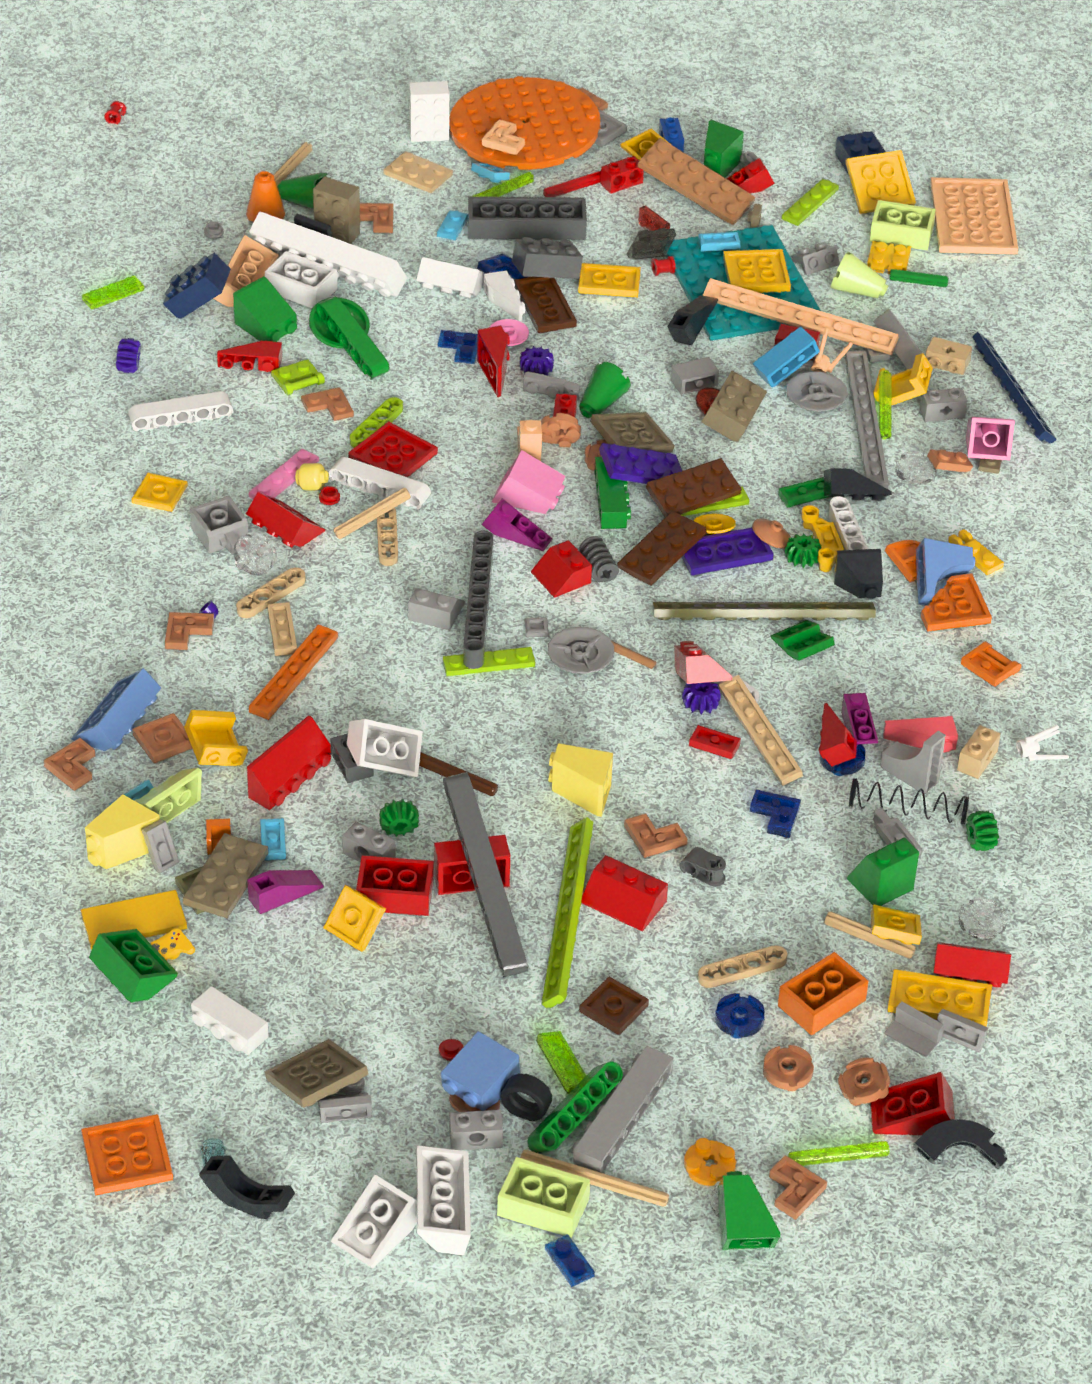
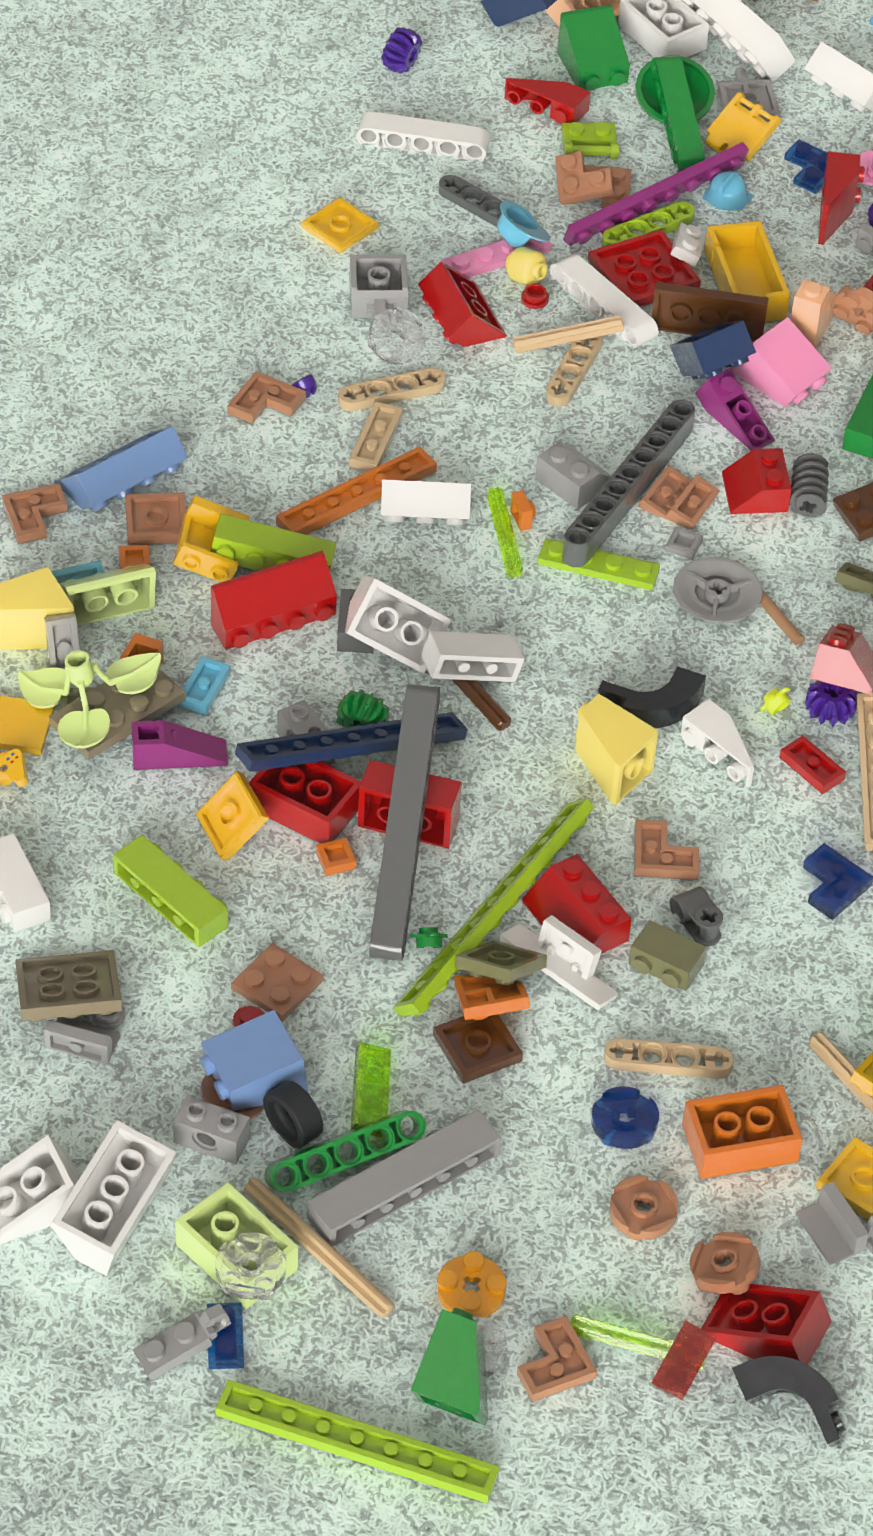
camera: 25 degrees right, 5 degrees up
(165, 769) = (133, 555): none -> orange plate
(215, 897) = (86, 728): none -> yellowish green plant
(253, 443) = (467, 190): none -> dark grey beam
(257, 729) = (264, 546): none -> lime brick
(294, 451) = (519, 225): none -> medium azure piece
(312, 410) = (581, 186): none -> nougat plate
(342, 984) = (170, 890): none -> lime brick
(347, 659) = (425, 501): none -> white brick
(368, 402) = (652, 196): none -> magenta plate
(391, 315) = (755, 91): none -> light grey plate
(398, 842) = (337, 743): none -> dark blue plate
(400, 335) = (741, 125): none -> yellow plate
(411, 662) = (504, 532): none -> clear neon green axle
(413, 425) = (688, 244): none -> white plate
(415, 381) = (728, 192): none -> medium azure piece
(416, 643) = (522, 510): none -> orange plate
(439, 919) = (336, 856): none -> orange plate
(449, 751) = (472, 656): none -> white brick
(452, 1017) = (277, 981): none -> nougat plate
(462, 466) = (696, 309): none -> reddish brown plate
(467, 431) = (746, 264): none -> yellow piece
(484, 489) = (712, 349): none -> dark blue brick
(524, 600) = (679, 498): none -> nougat slope
(537, 948) = (428, 937): none -> green plate
(545, 1275) = (181, 1341): none -> light grey hinge
(571, 1216) = (250, 1284): none -> clear plate
(596, 737) = (661, 706): none -> black arch
(599, 944) = (500, 962): none -> olive plate
(605, 969) = (484, 997): none -> orange plate
(635, 738) = (716, 735): none -> white slope
(635, 926) = (569, 959): none -> white bracket
(665, 709) = (776, 700): none -> neon yellow plate
(700, 1290) = (357, 1441): none -> lime plate
(701, 900) = (667, 956): none -> olive brick
(879, 1151) = (684, 1360): none -> clear red plate

